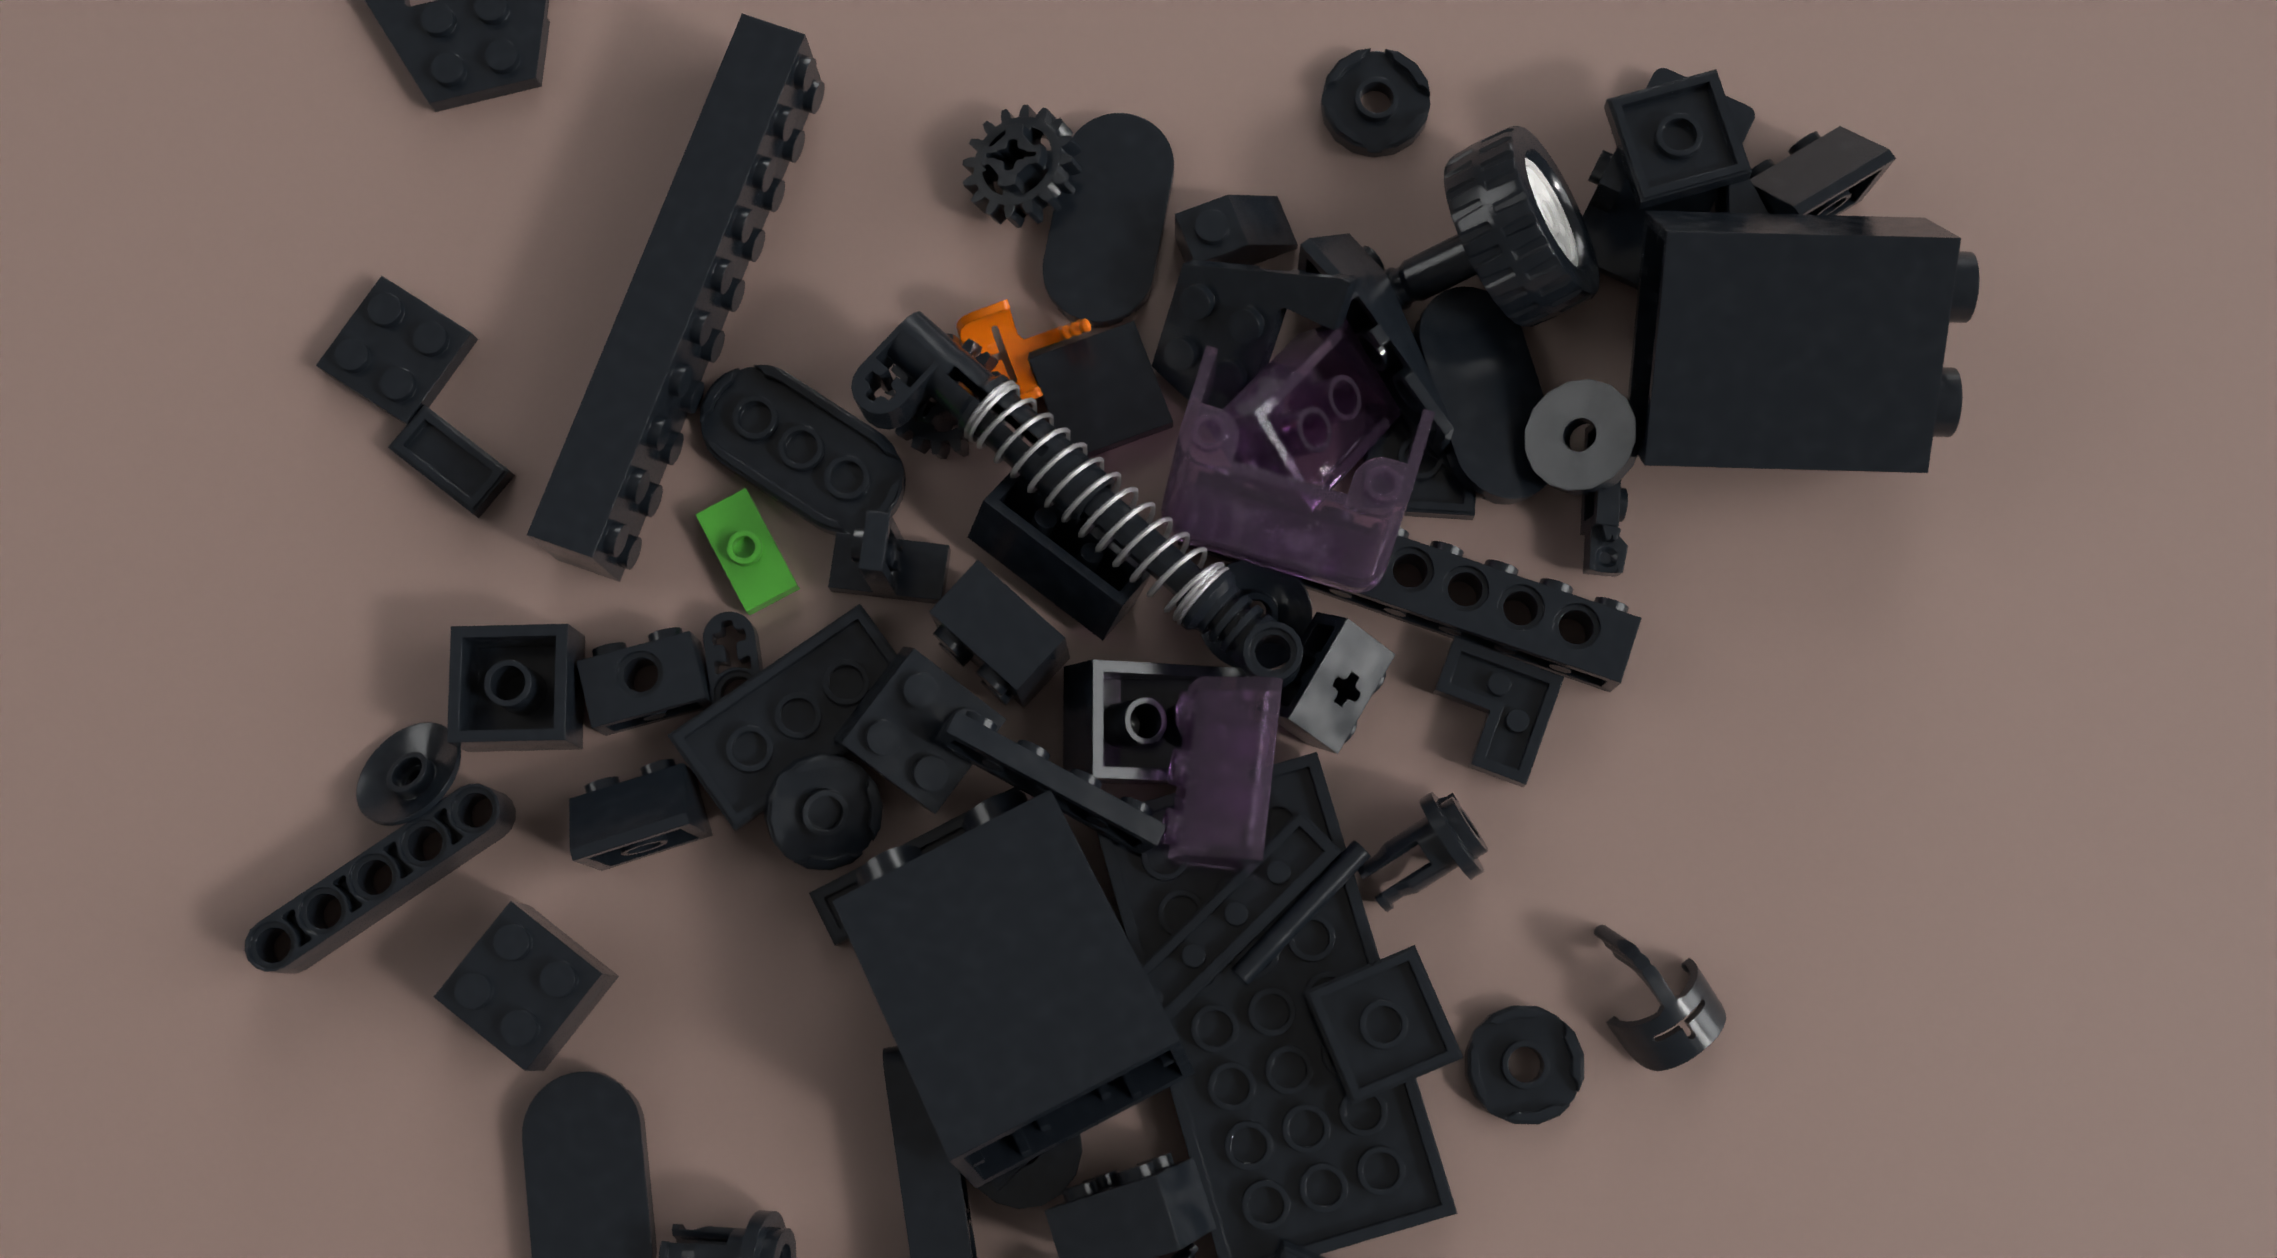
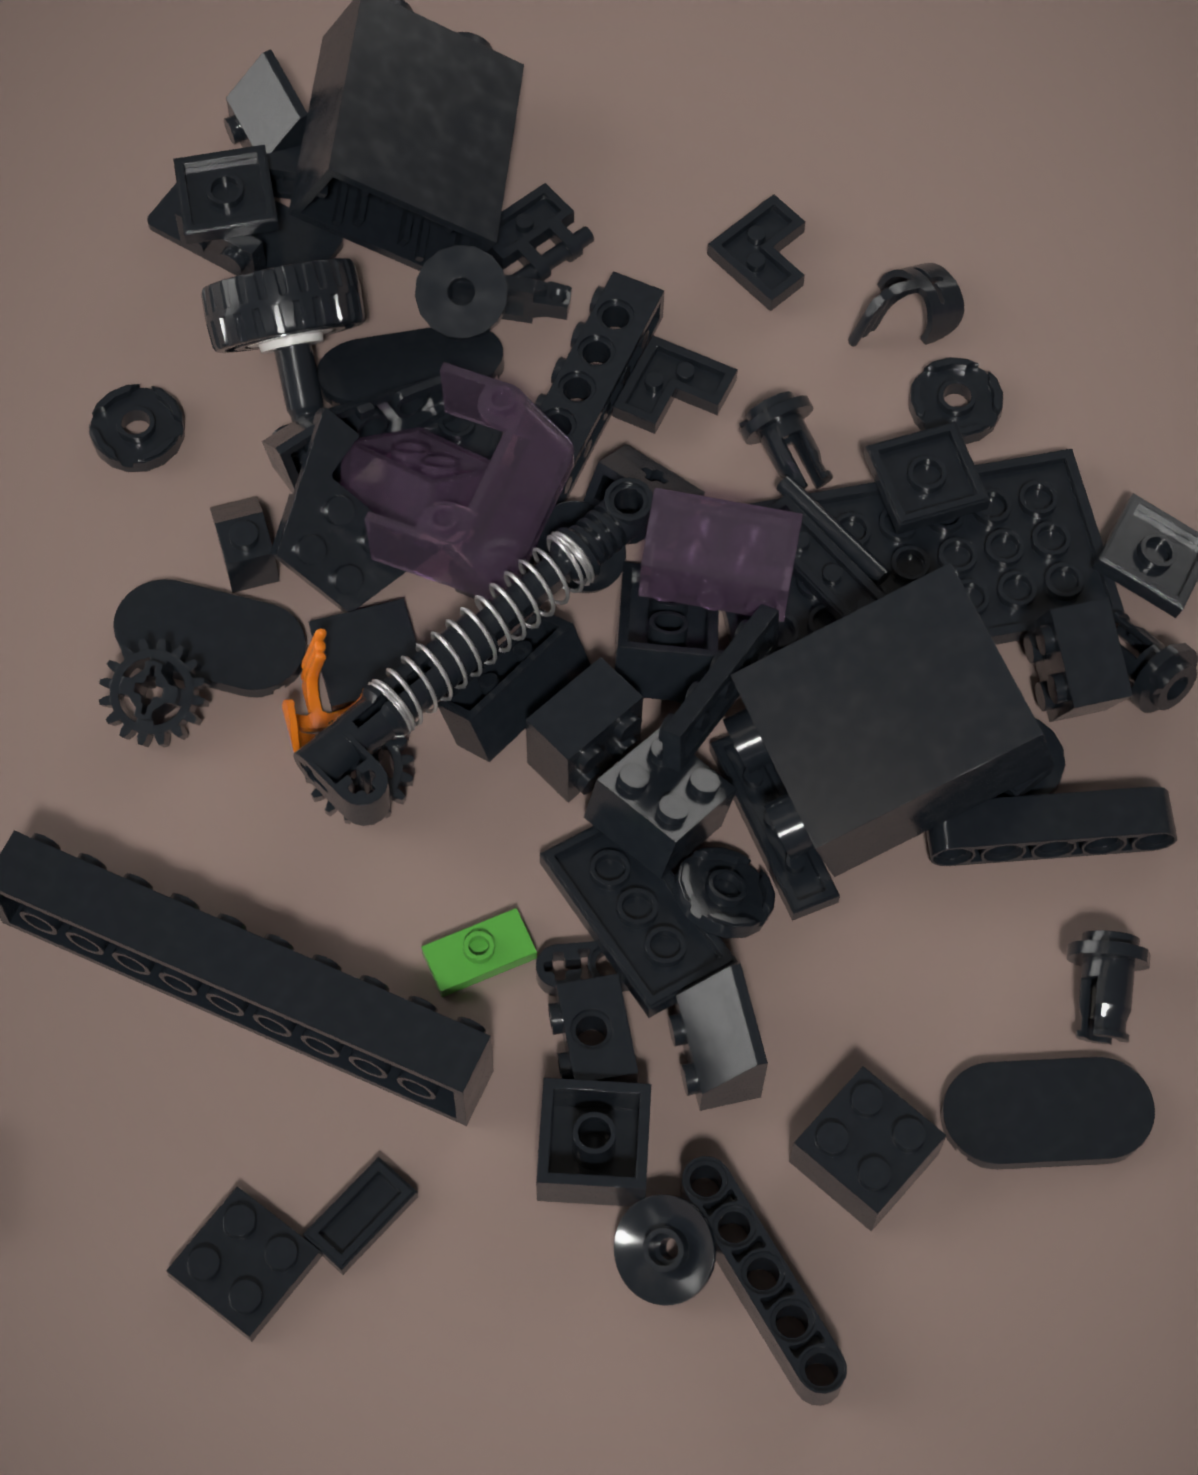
camera: 90 degrees left, 15 degrees down
(801, 448) = (391, 898): black tile -> none
(885, 565) = (507, 829): black bracket -> none
(1712, 512) = (531, 223): none -> black plate
(1715, 790) = (752, 250): none -> black plate

